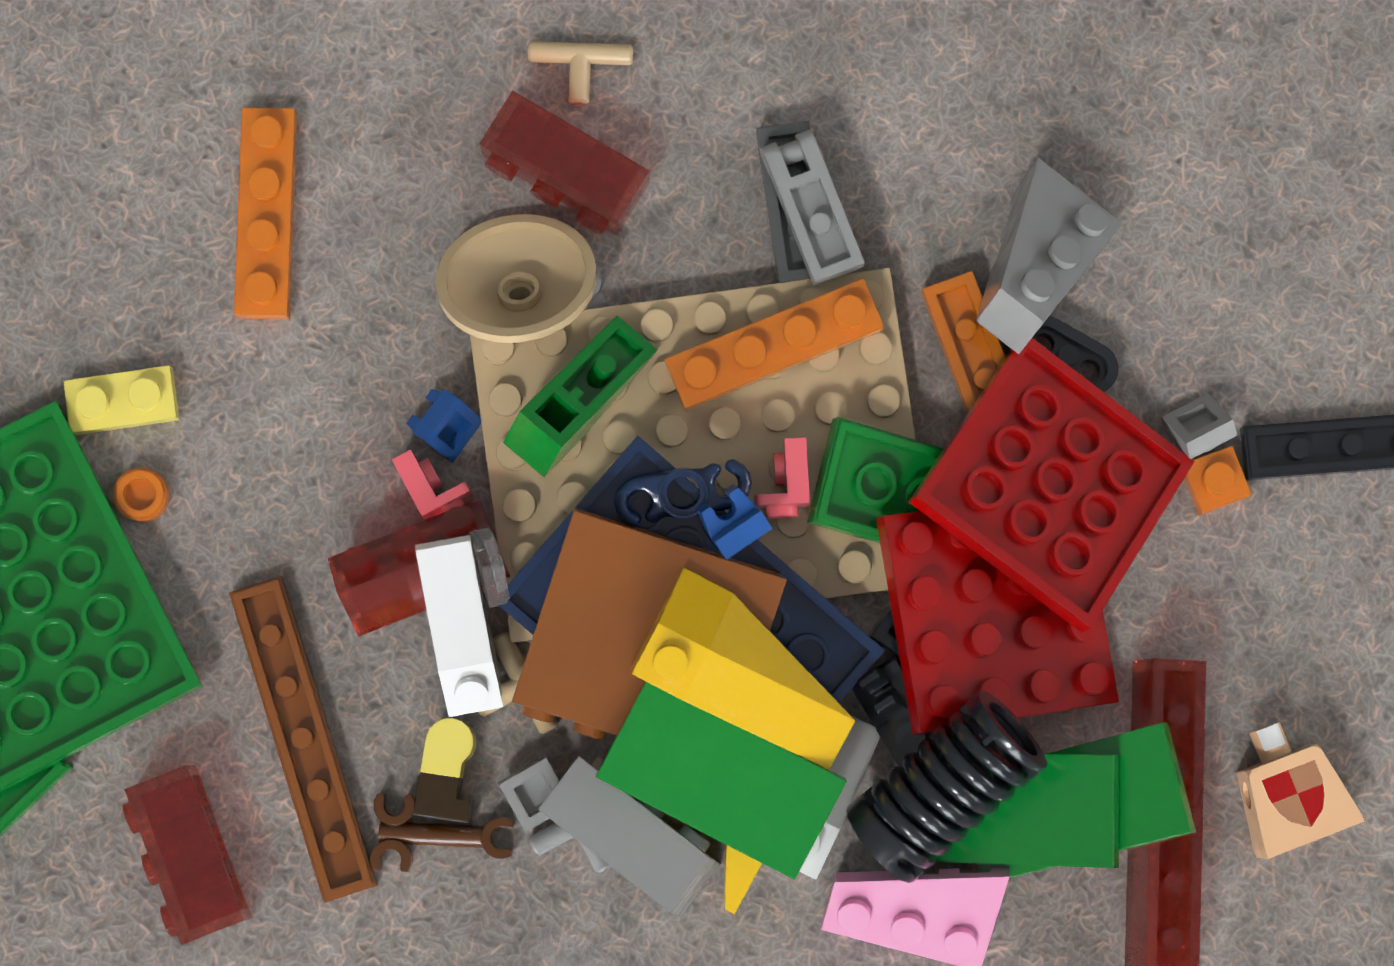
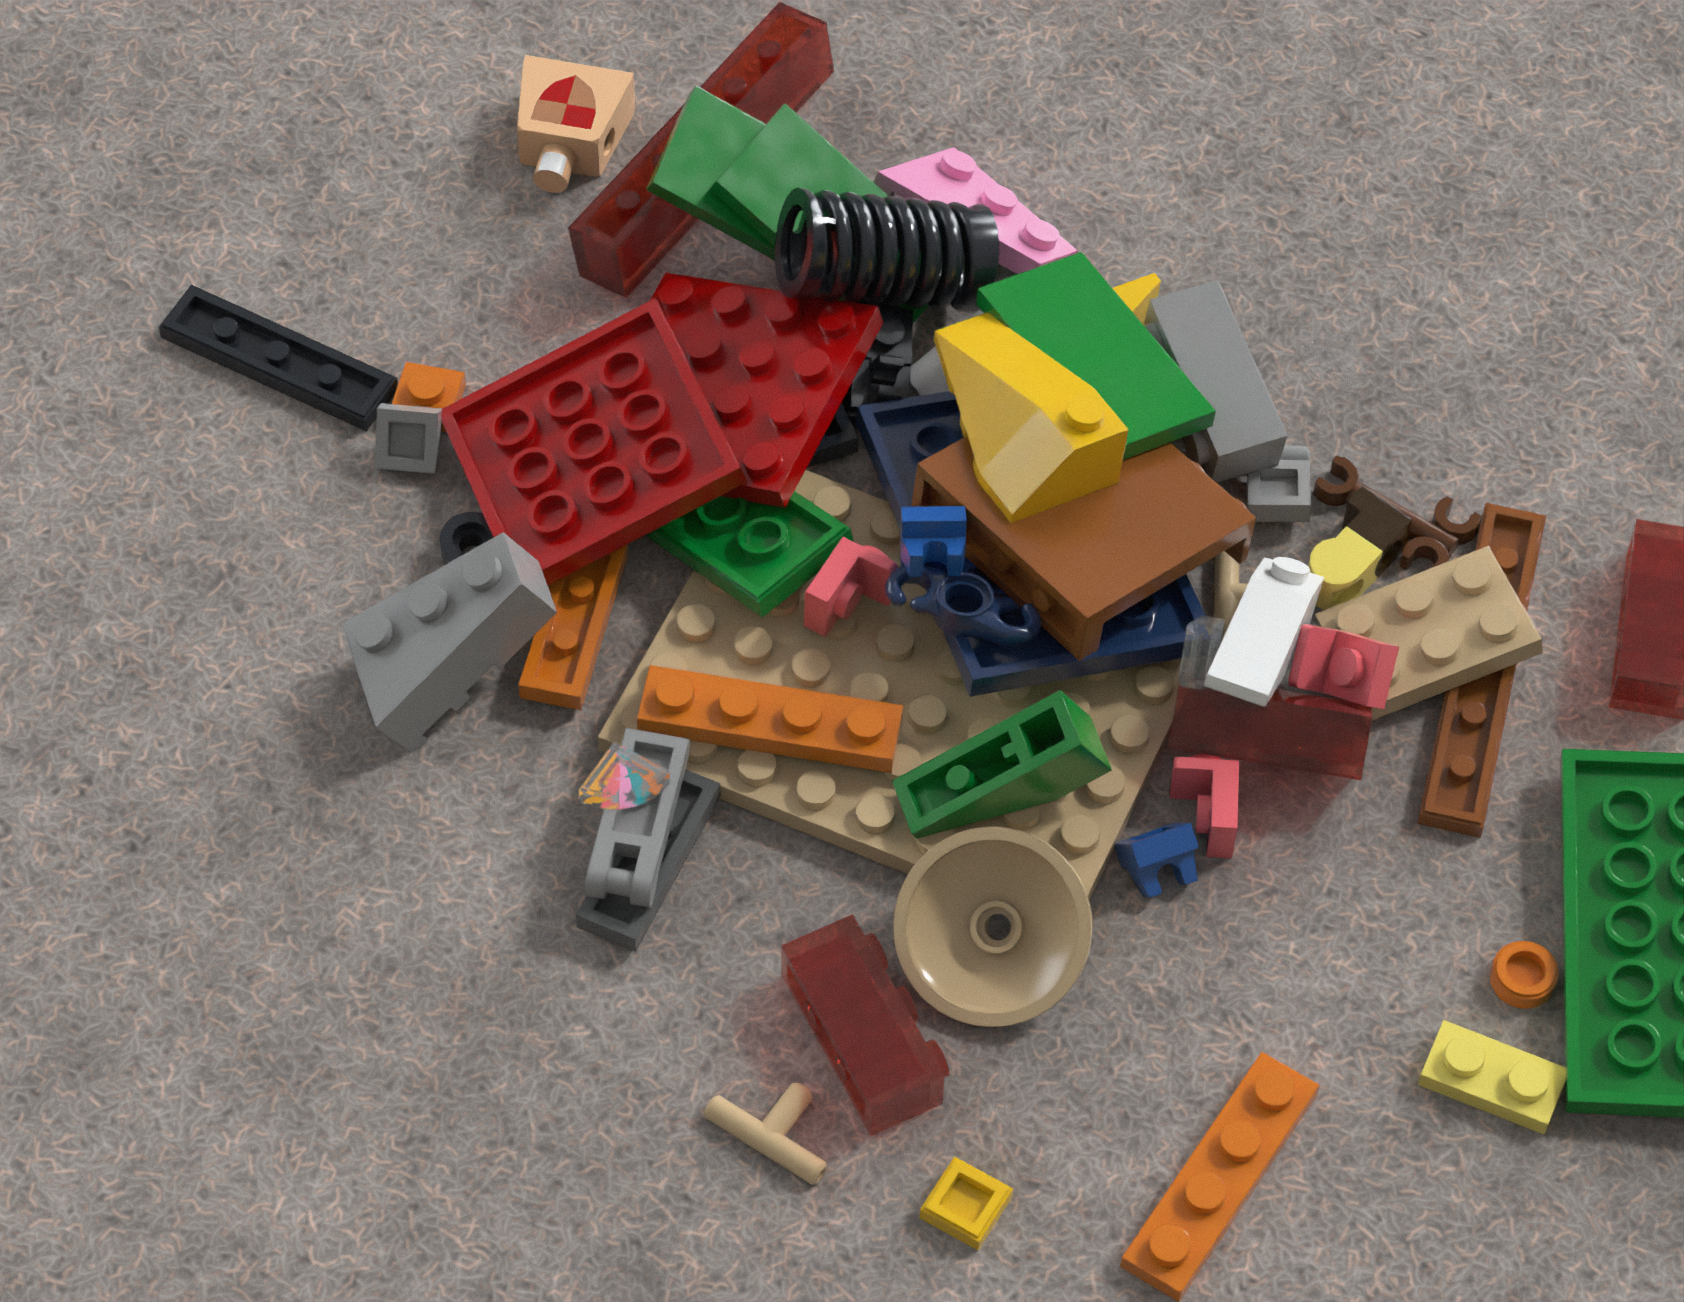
camera: 145 degrees left, 25 degrees down
(352, 731) = (1447, 624): none -> tan plate
(390, 651) = (1343, 665): none -> coral bracket
(421, 90) = (966, 1203): none -> yellow tile
(835, 214) = (623, 780): none -> clear tile

